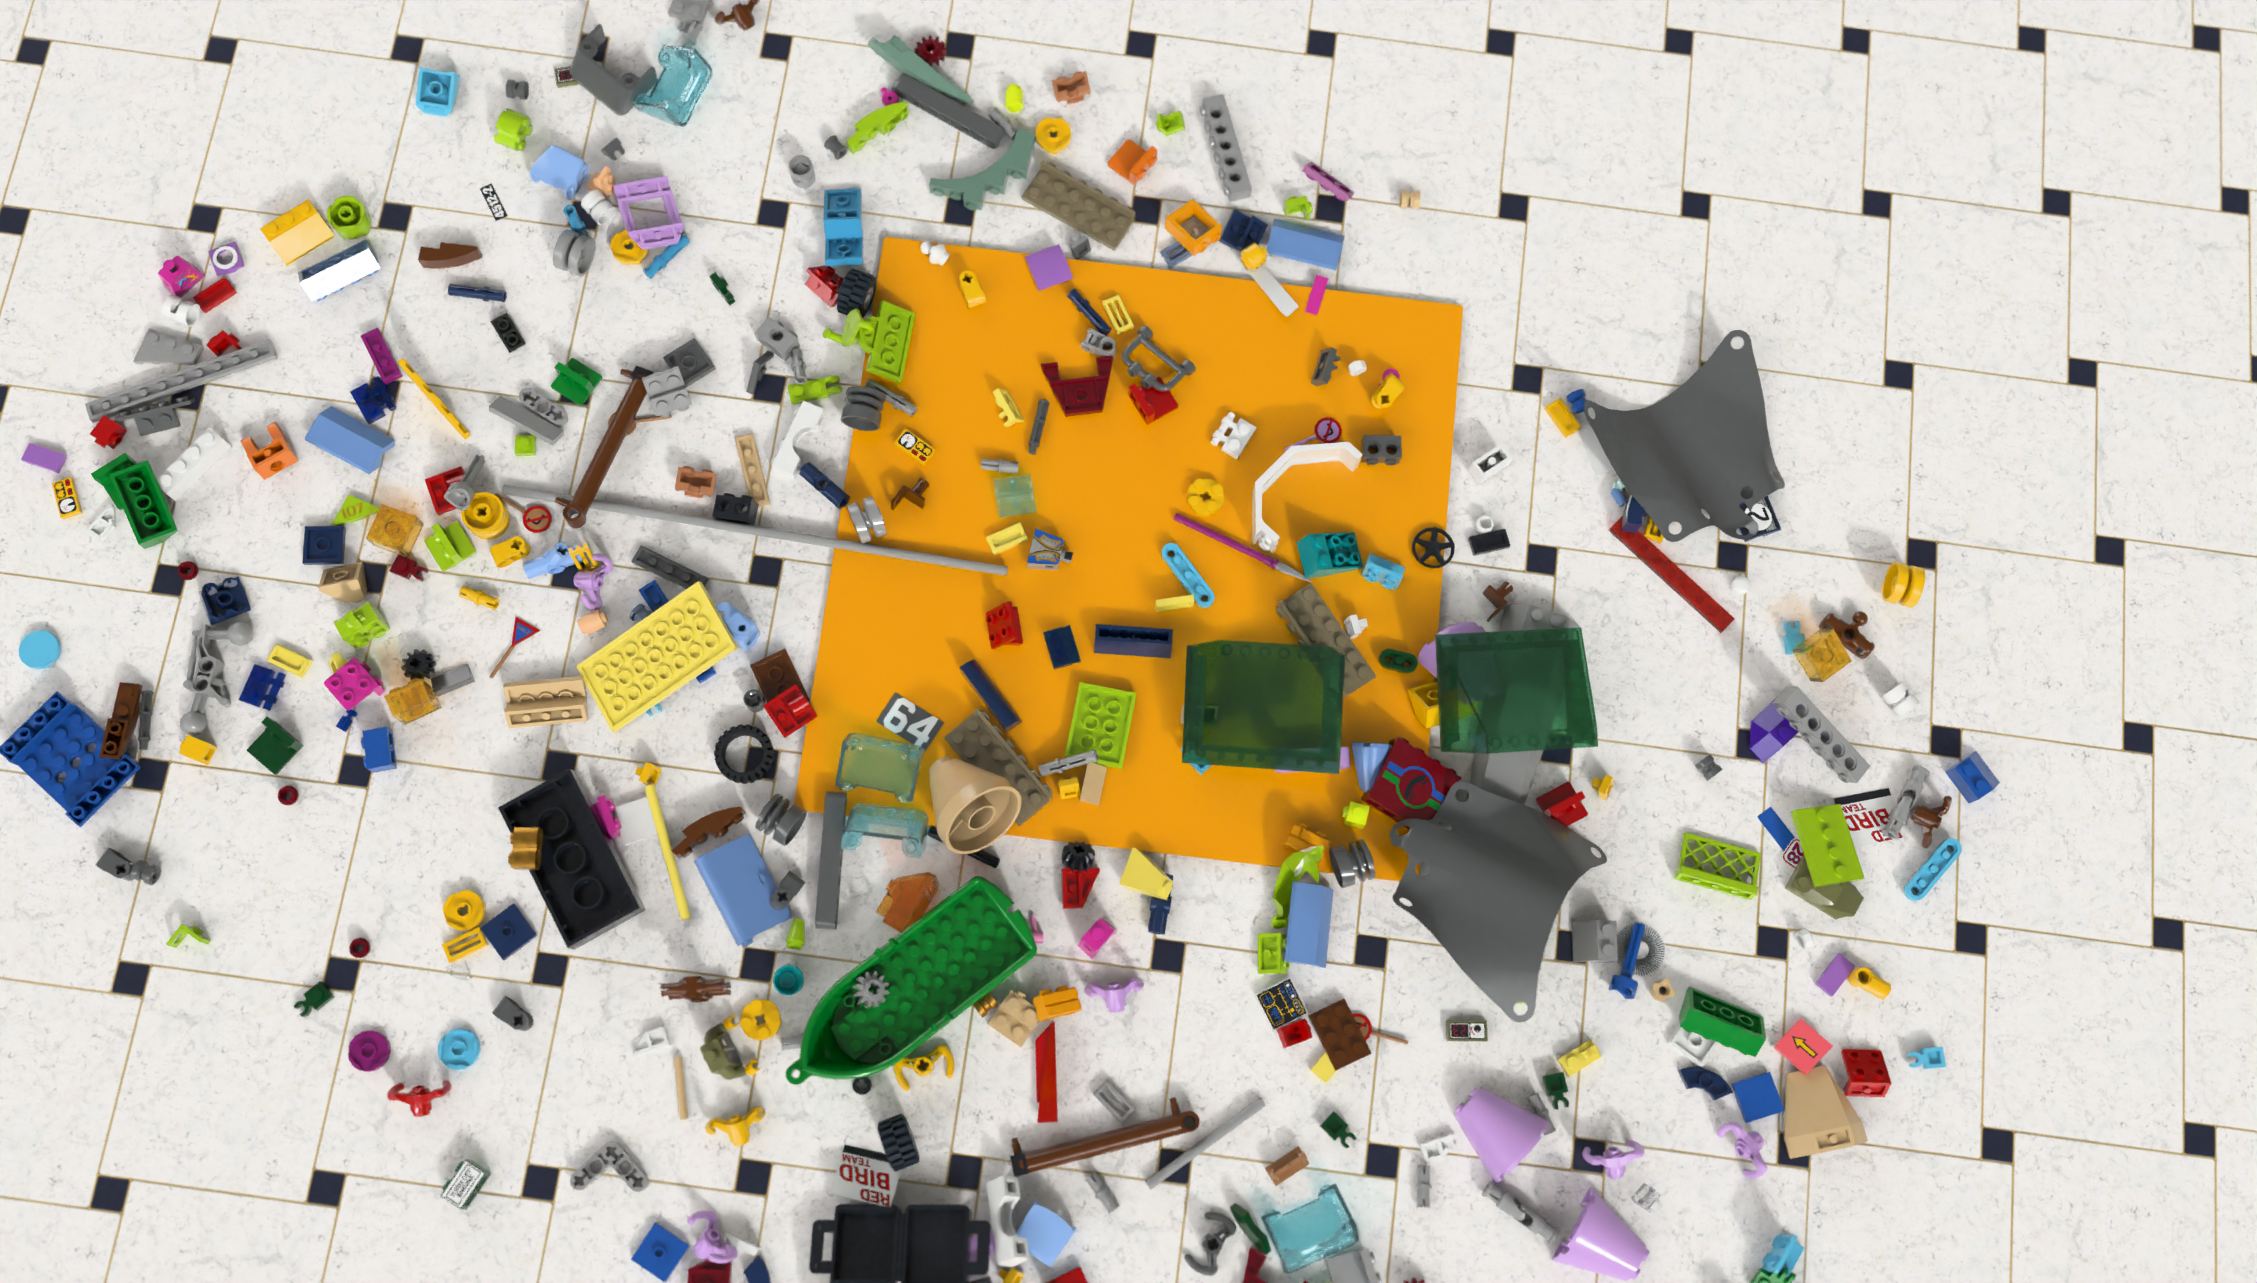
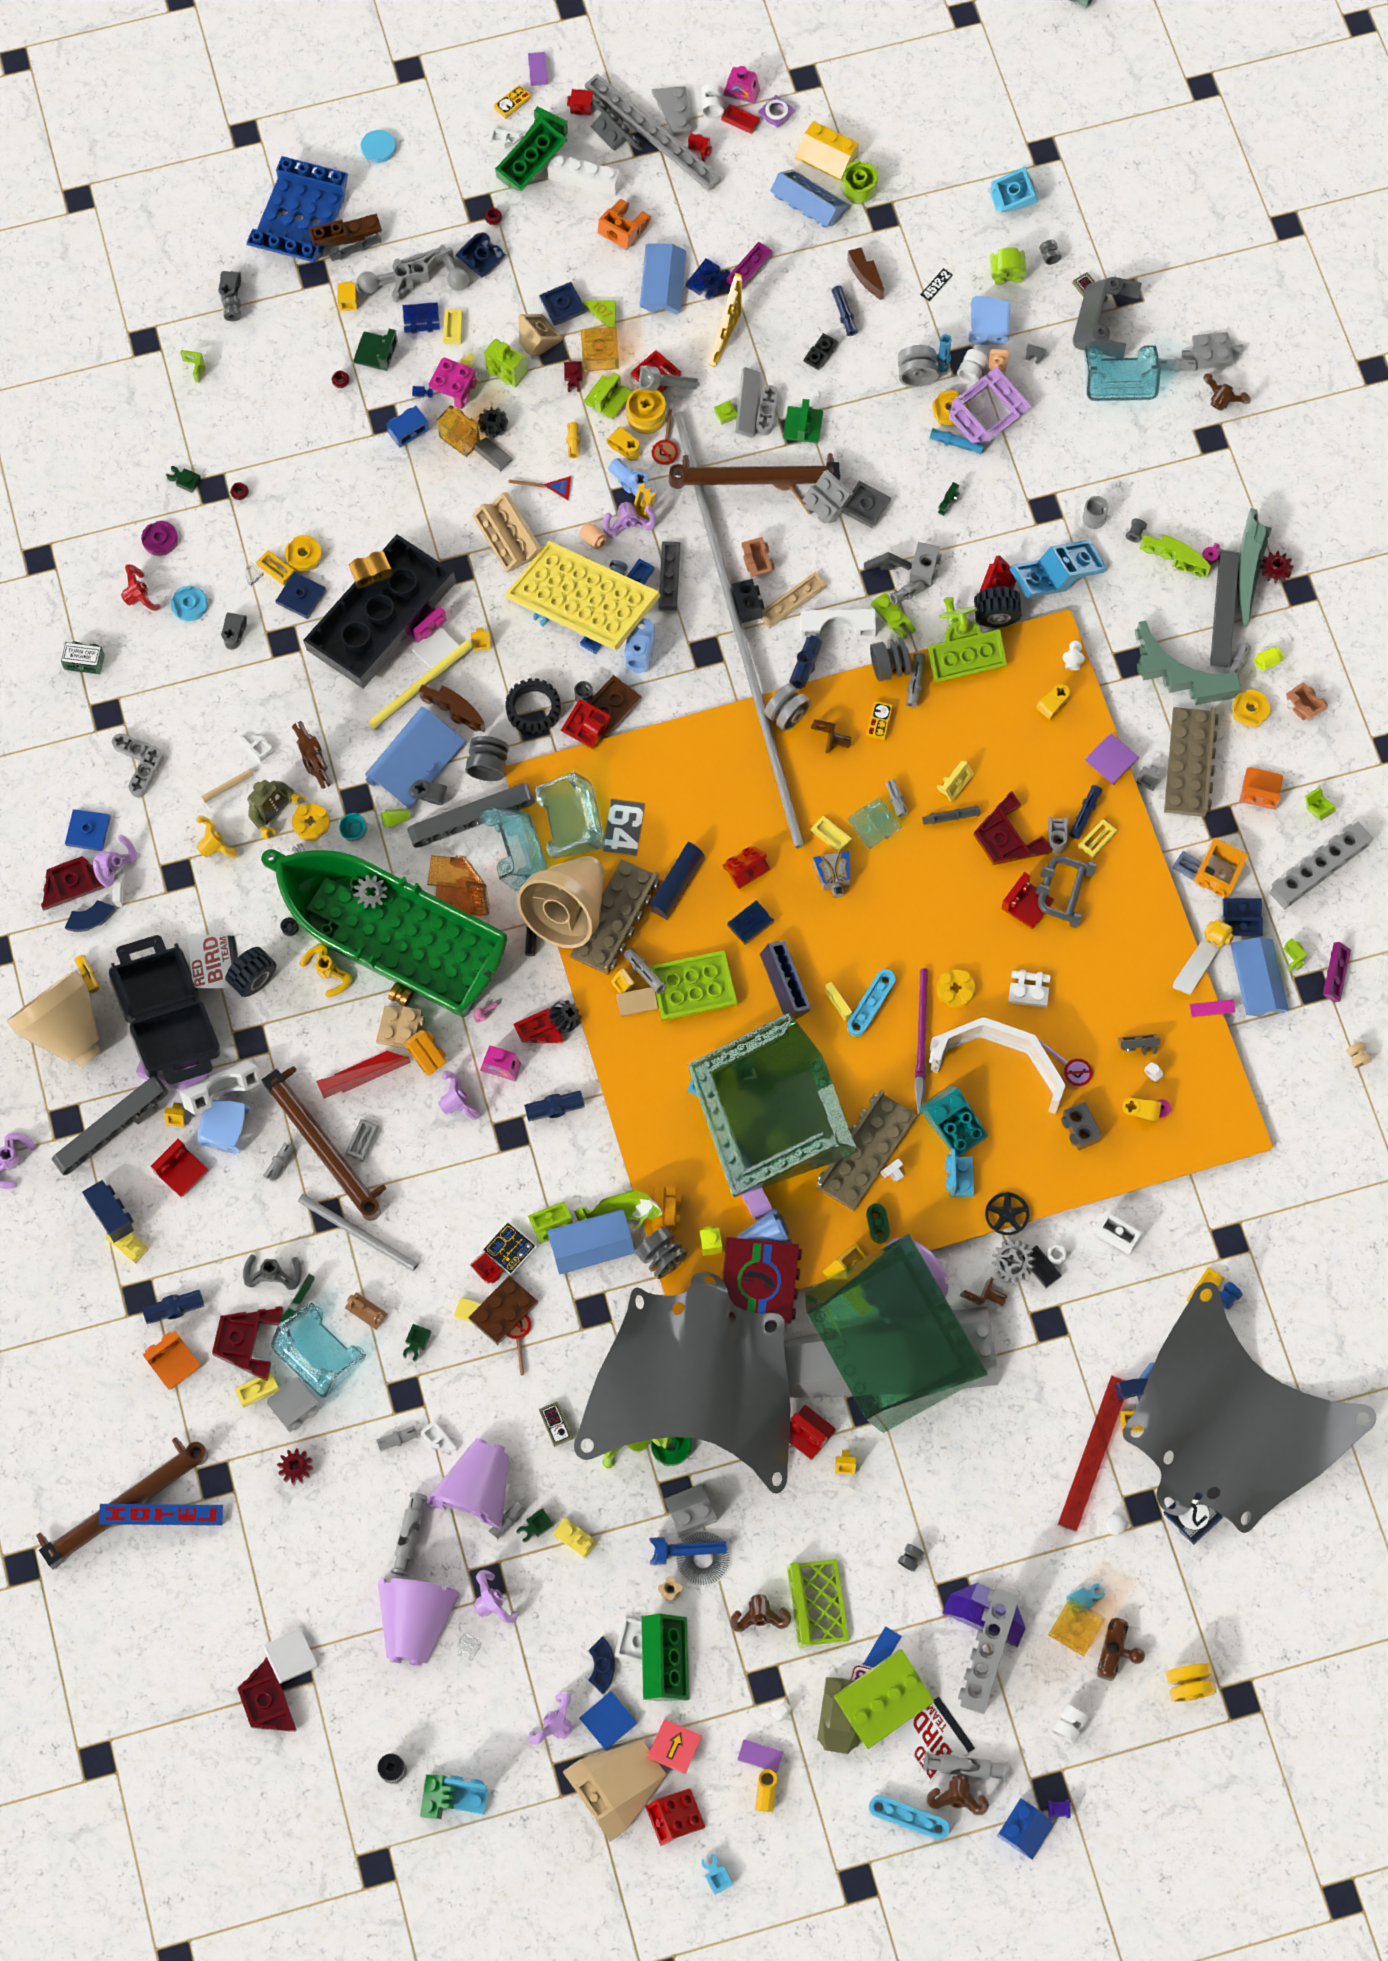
camera: 75 degrees right, 5 degrees down
(1145, 876) = (572, 1079): light yellow slope -> none
(1472, 567) = (1011, 1268): none -> light grey gear
(1712, 920) = (760, 1615): none -> reddish brown piece
(1967, 741) = (1059, 1809): none -> dark purple bush

